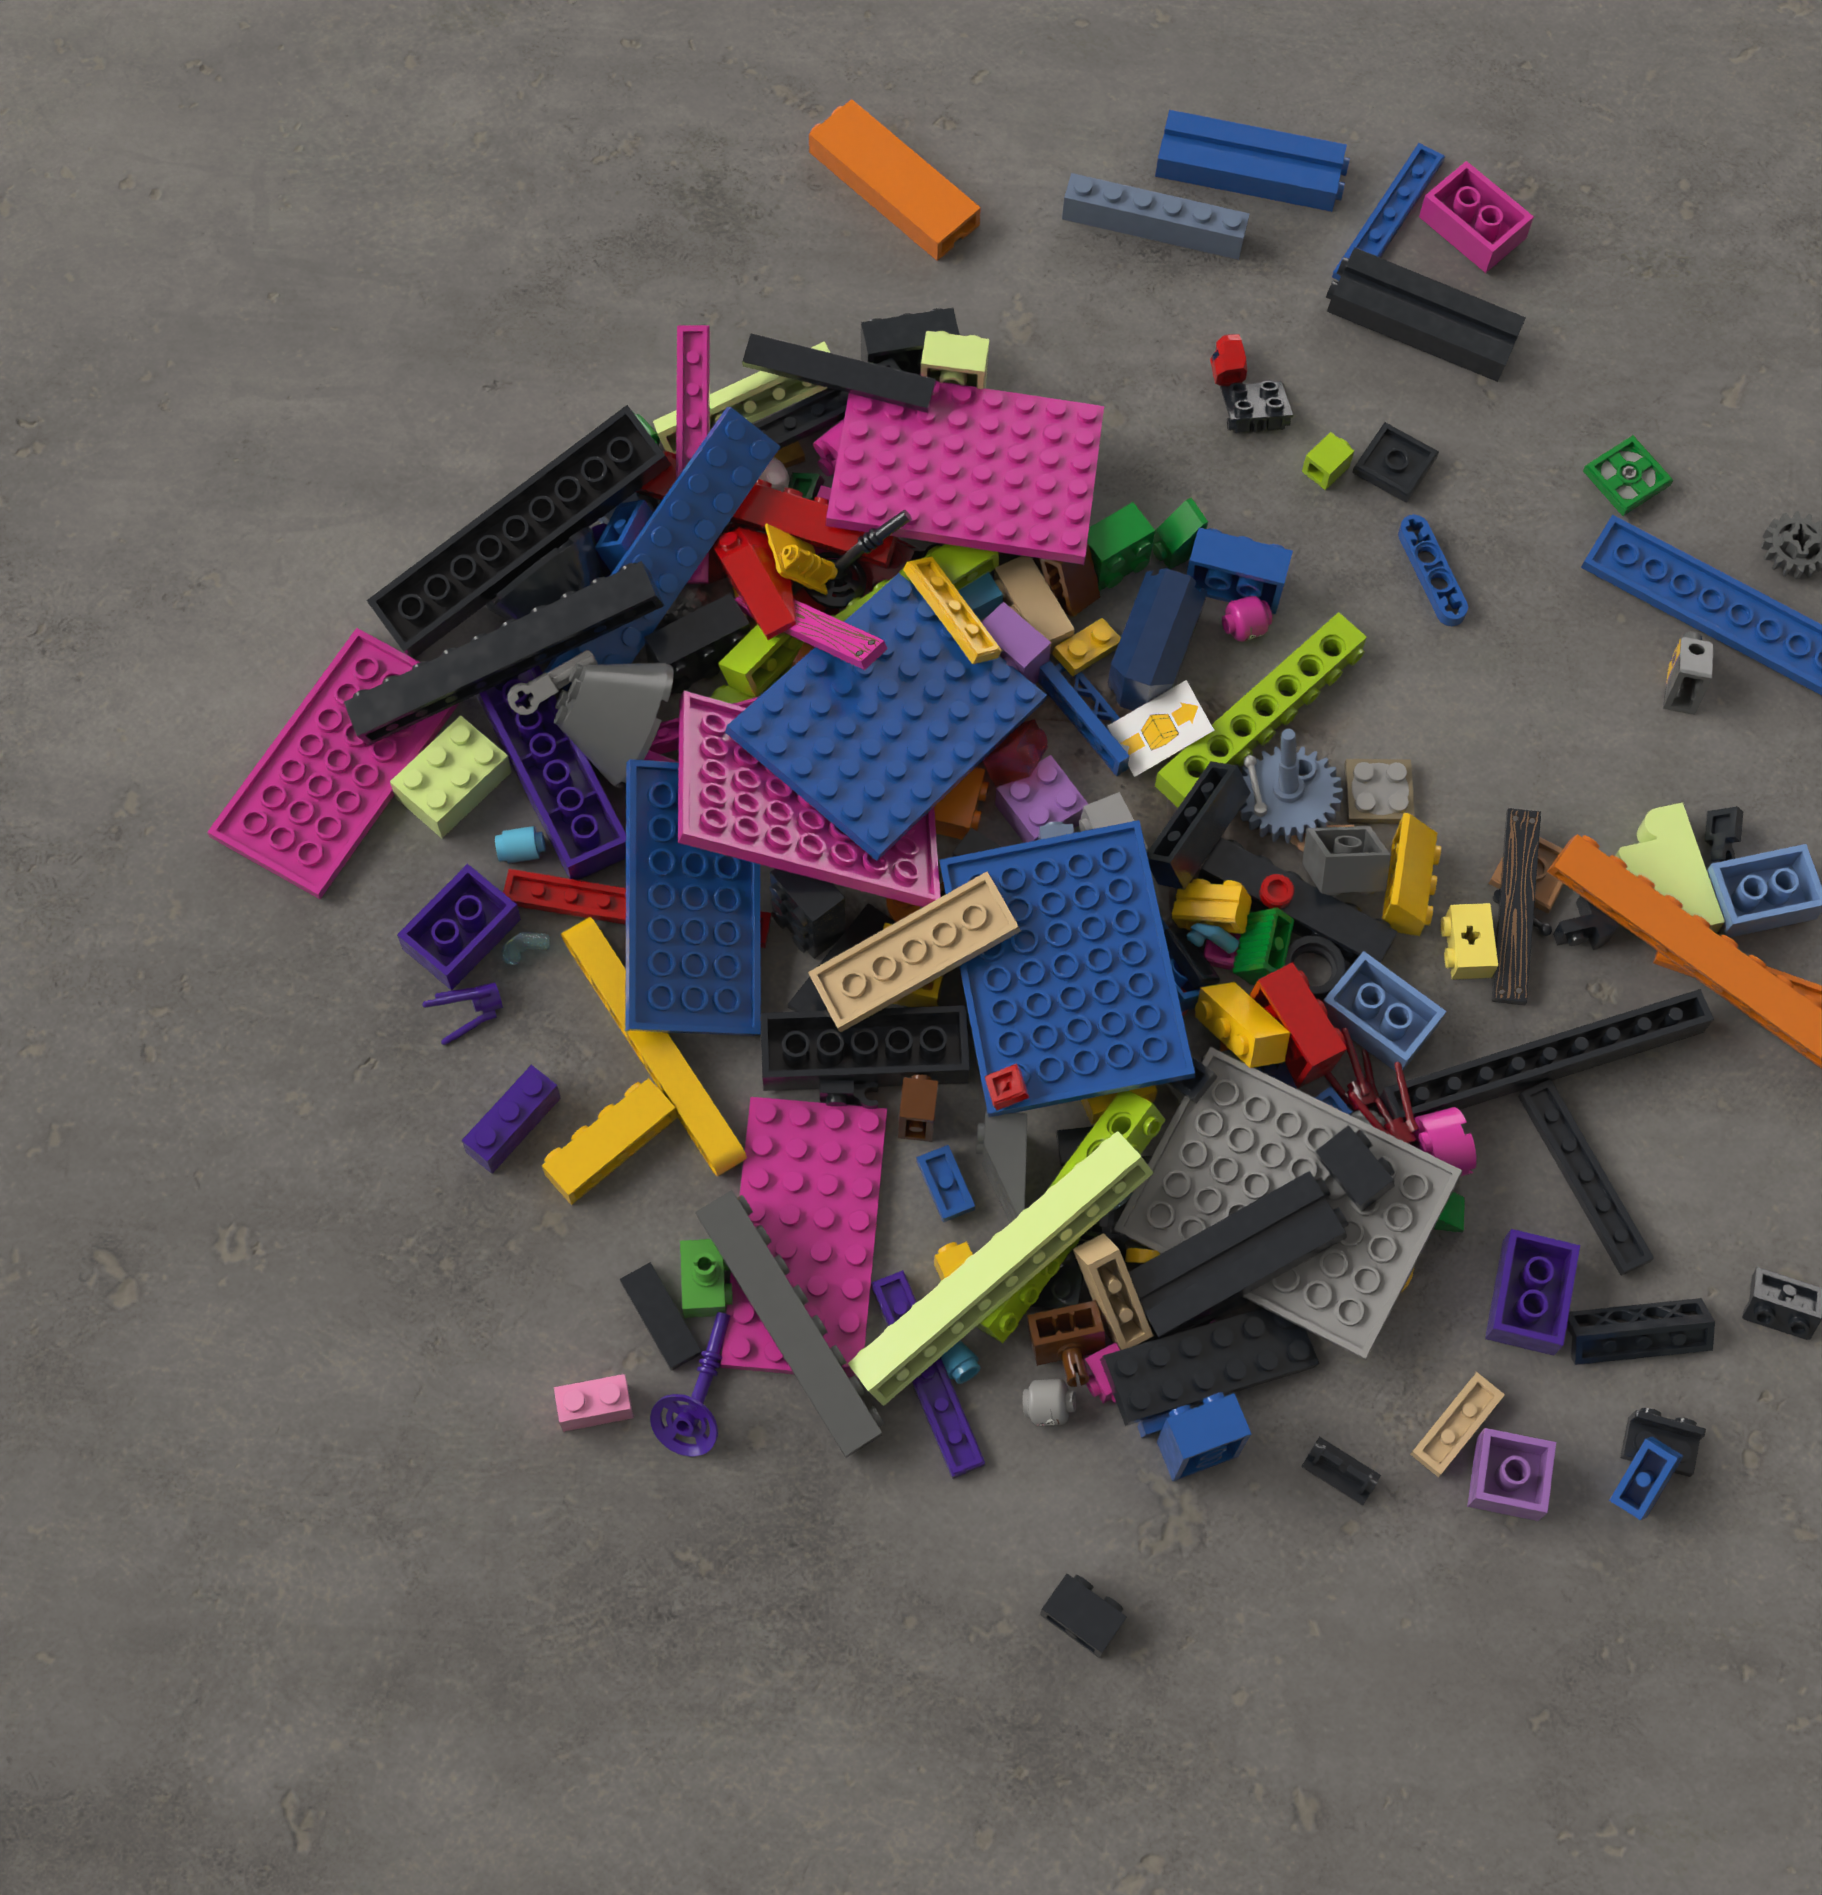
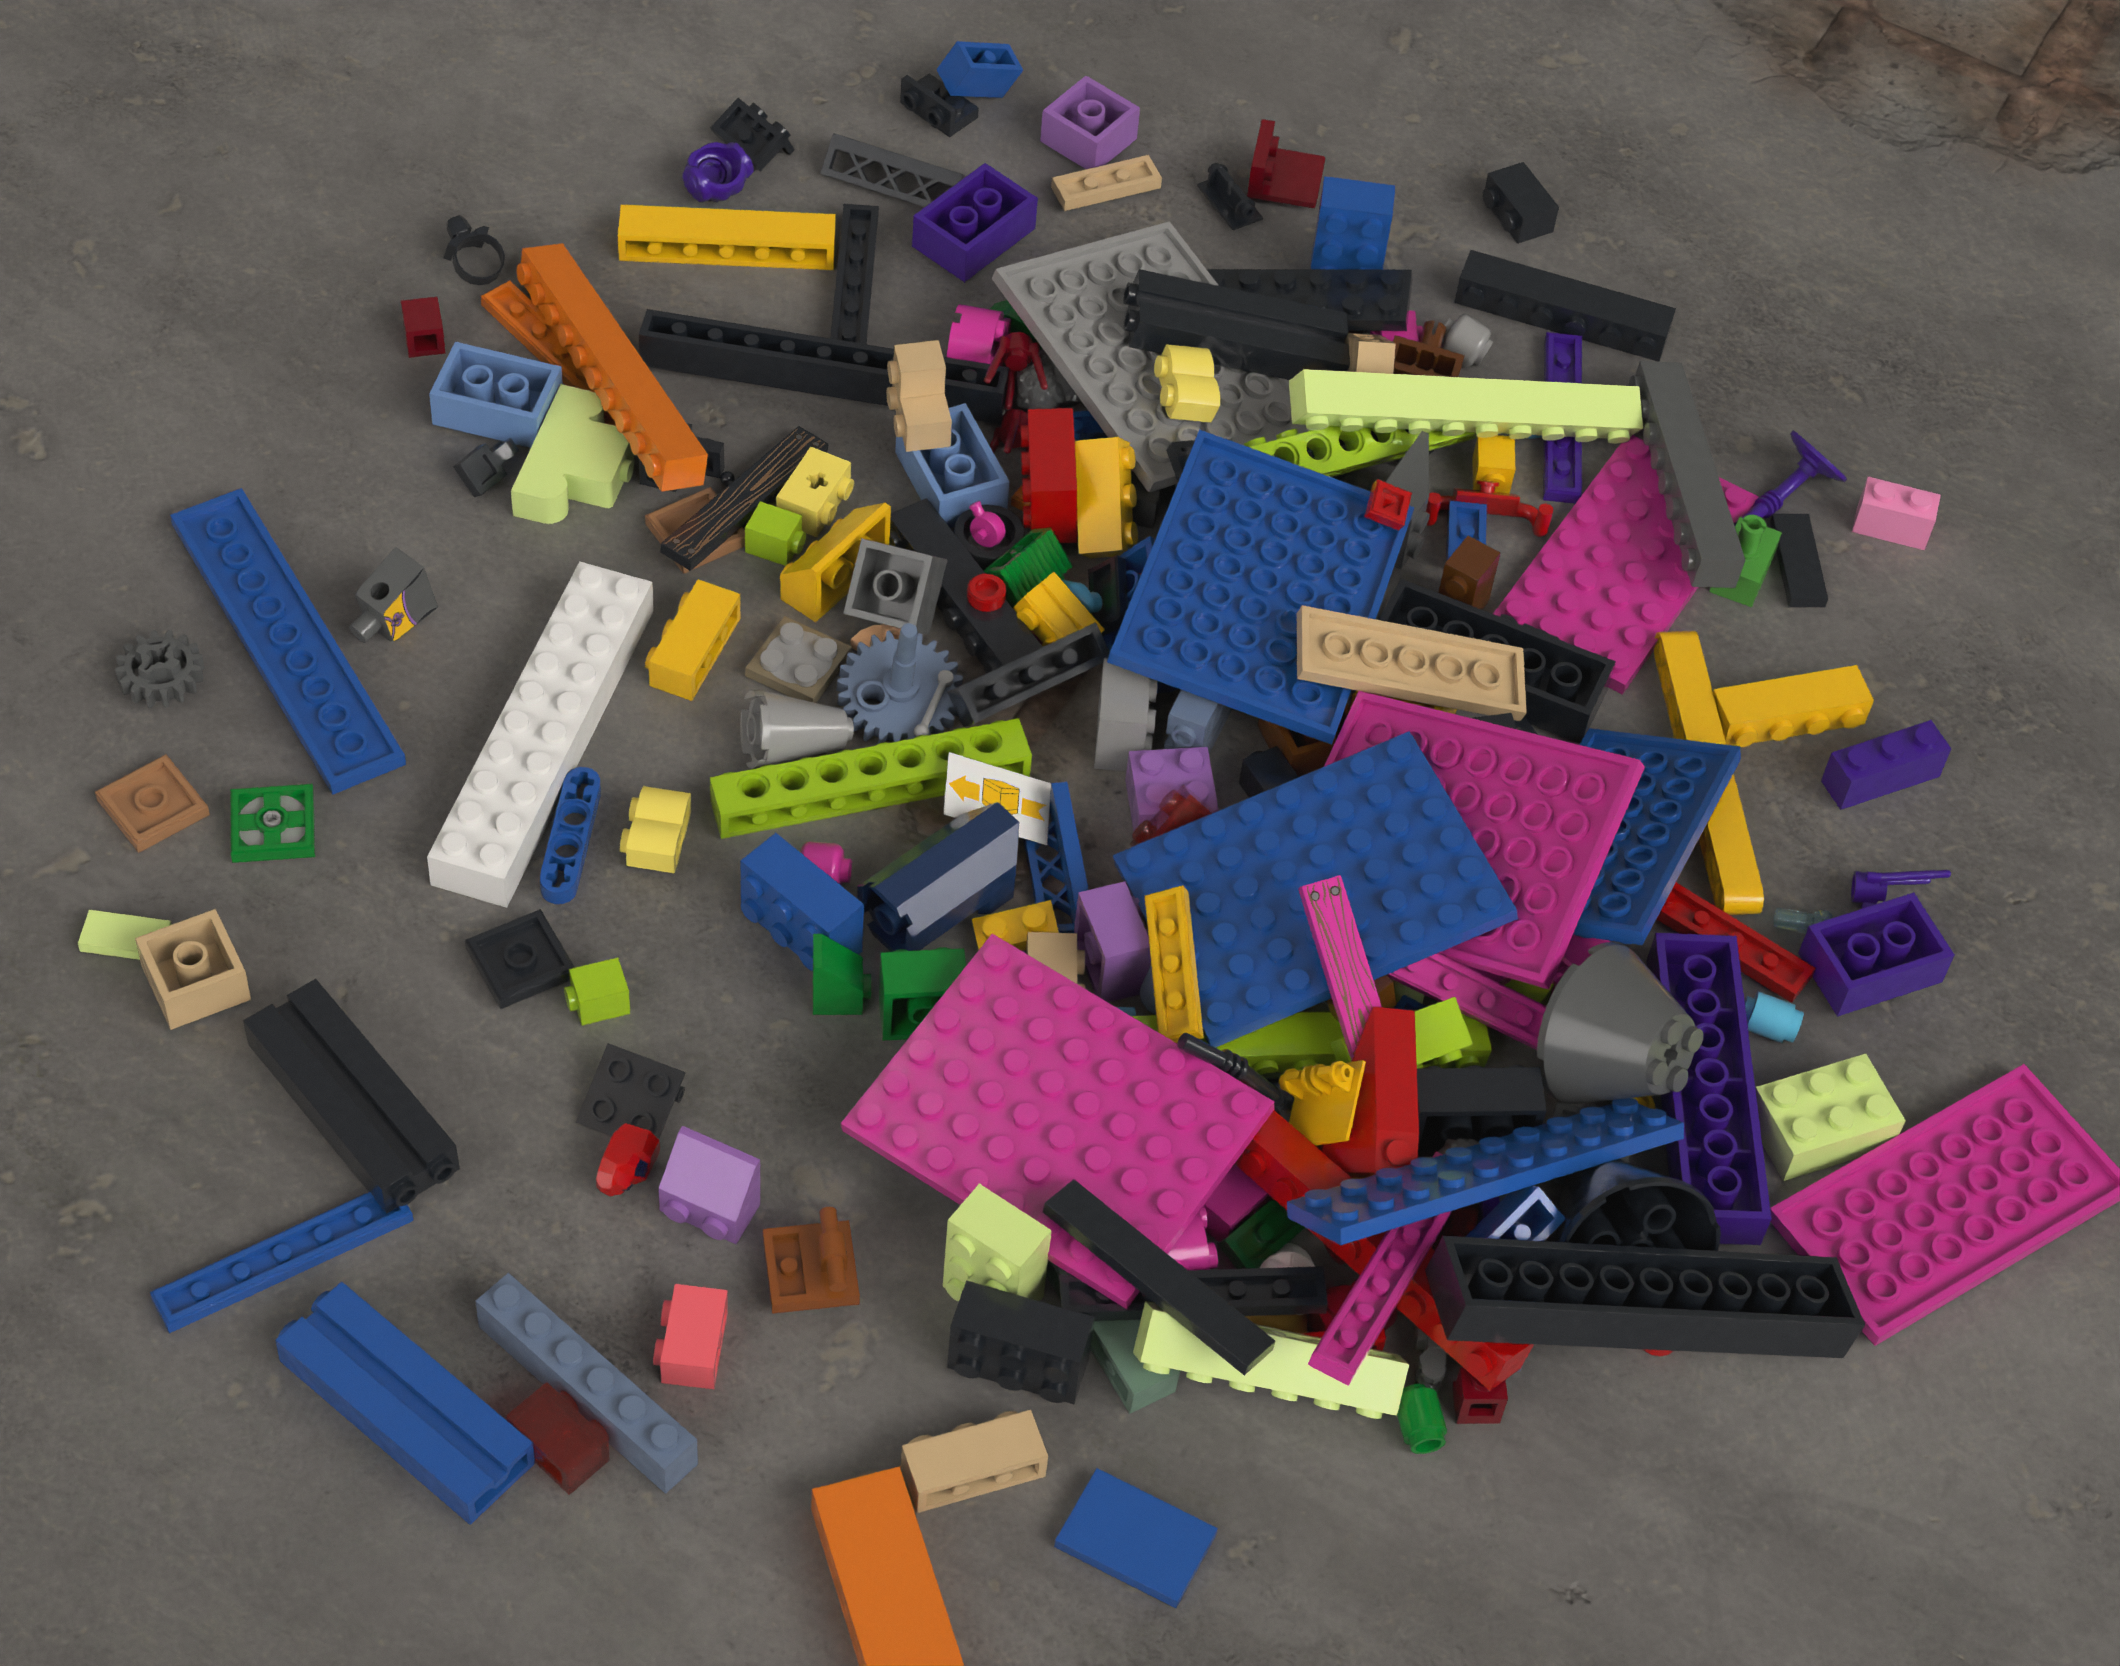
camera: 155 degrees left, 15 degrees down
(503, 653) = (1725, 1152): black brick -> none
(547, 684) = (1696, 1104): light grey connector -> none
(777, 290) = (1136, 1538): none -> blue tile
(899, 280) = (973, 1460): none -> tan brick
(944, 1228) = (1497, 504): none -> red piece
(983, 1499) = (1564, 305): none -> black brick
(1070, 351) = (811, 1265): none -> dark orange plate
(1112, 274) = (692, 1336): none -> coral brick
(1150, 174) = (562, 1438): none -> clear red brick
(1163, 361) = (710, 1186): none -> medium lavender slope
(1240, 1157) = (1187, 383): none -> light yellow brick
(1313, 1530) = (1283, 173): none -> dark red bracket
(1316, 961) = (986, 526): none -> dark pink piece
(1340, 712) = (789, 729): none -> light grey cone
(1356, 1168) = (1092, 313): black brick -> none
(1376, 596) = (656, 829): none -> light yellow brick
(1434, 1015) = (919, 396): none -> tan brick
(1463, 760) = (693, 639): none -> yellow brick
(1472, 884) = (774, 534): none -> lime brick
(1476, 216) = (190, 1176): dark pink brick -> none
(1509, 632) = (540, 735): none -> white brick
(1586, 340) = (193, 969): none -> tan brick
(1651, 358) = (116, 933): none -> yellowish green tile
(1716, 456) = (152, 803): none -> medium nougat tile
(1720, 1167) = (726, 237): none -> yellow brick
(1778, 1227) = (717, 171): none -> dark purple hair

